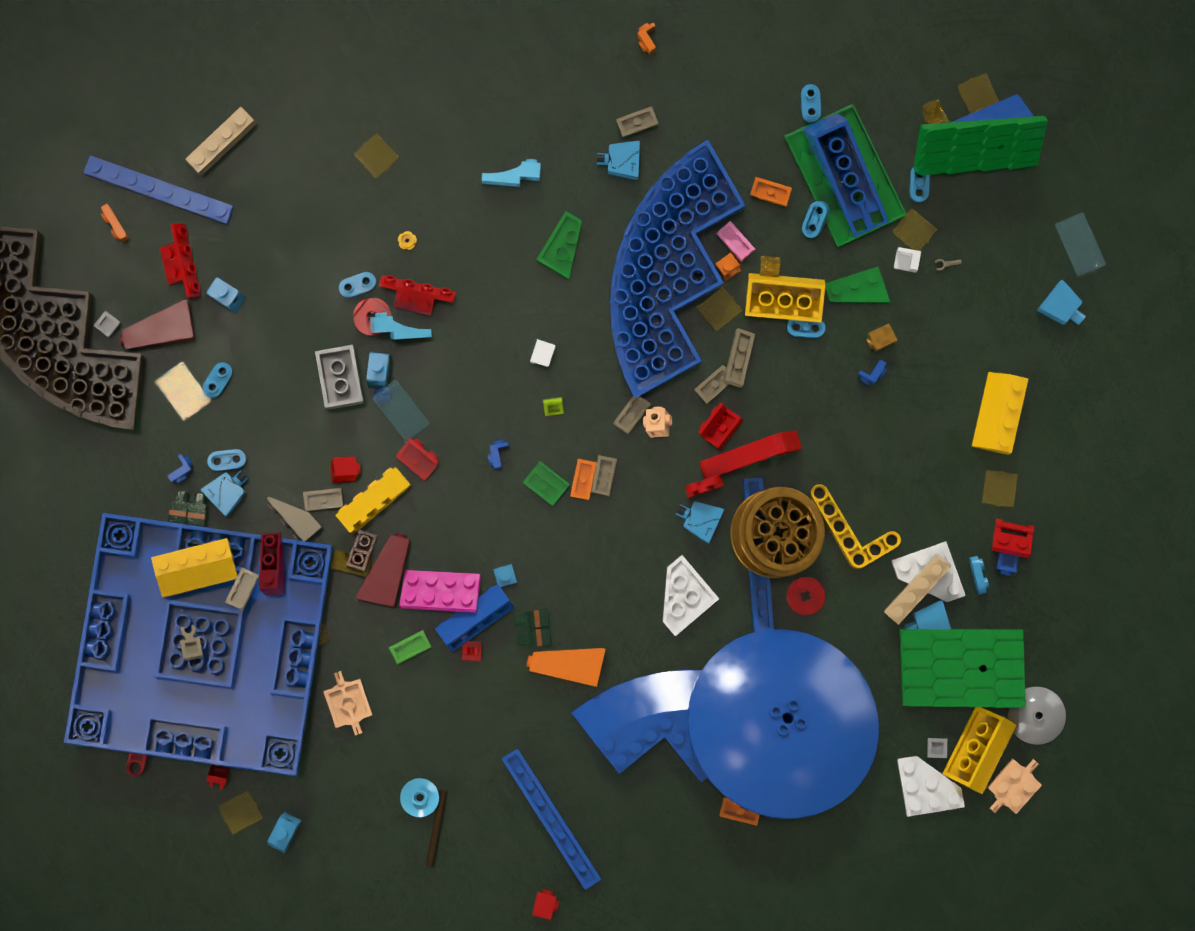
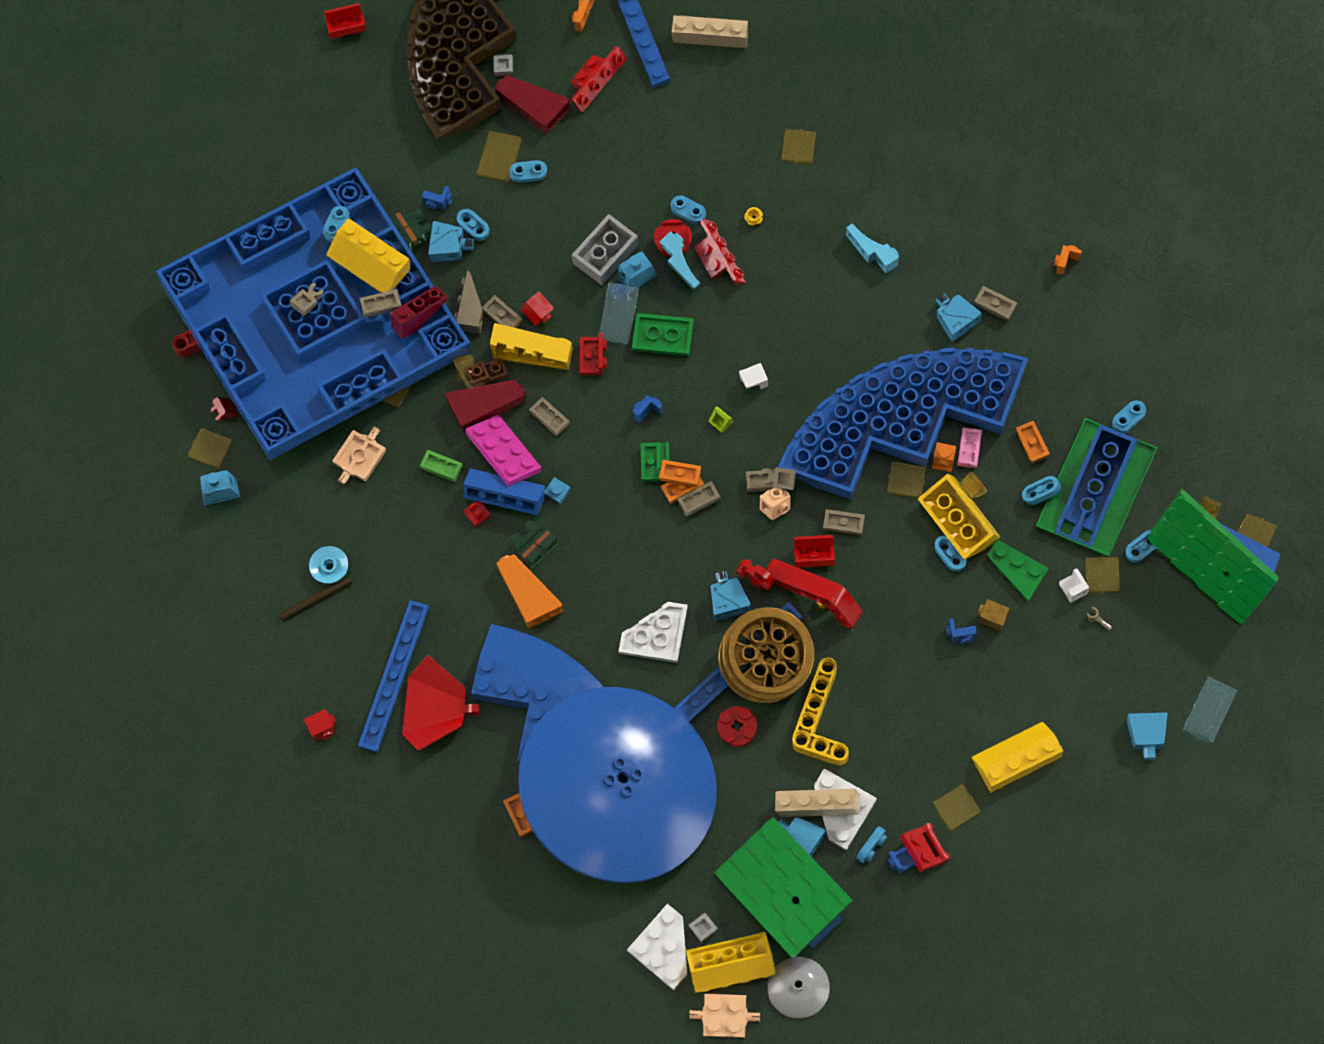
camera: 60 degrees right, 15 degrees down
(141, 568) = (335, 222): none -> dark azure plate
(225, 295) = (597, 121): dark azure torso -> none
(440, 532) = (549, 416): none -> dark tan plate
(446, 391) = (662, 334): none -> green plate
(561, 246) = (850, 325): green wing -> none
(574, 474) = (680, 473): none -> orange plate
(601, 808) = (434, 704): none -> red panel
(646, 402) = (782, 477): none -> dark tan plate
(739, 358) = (880, 521): dark tan plate -> none

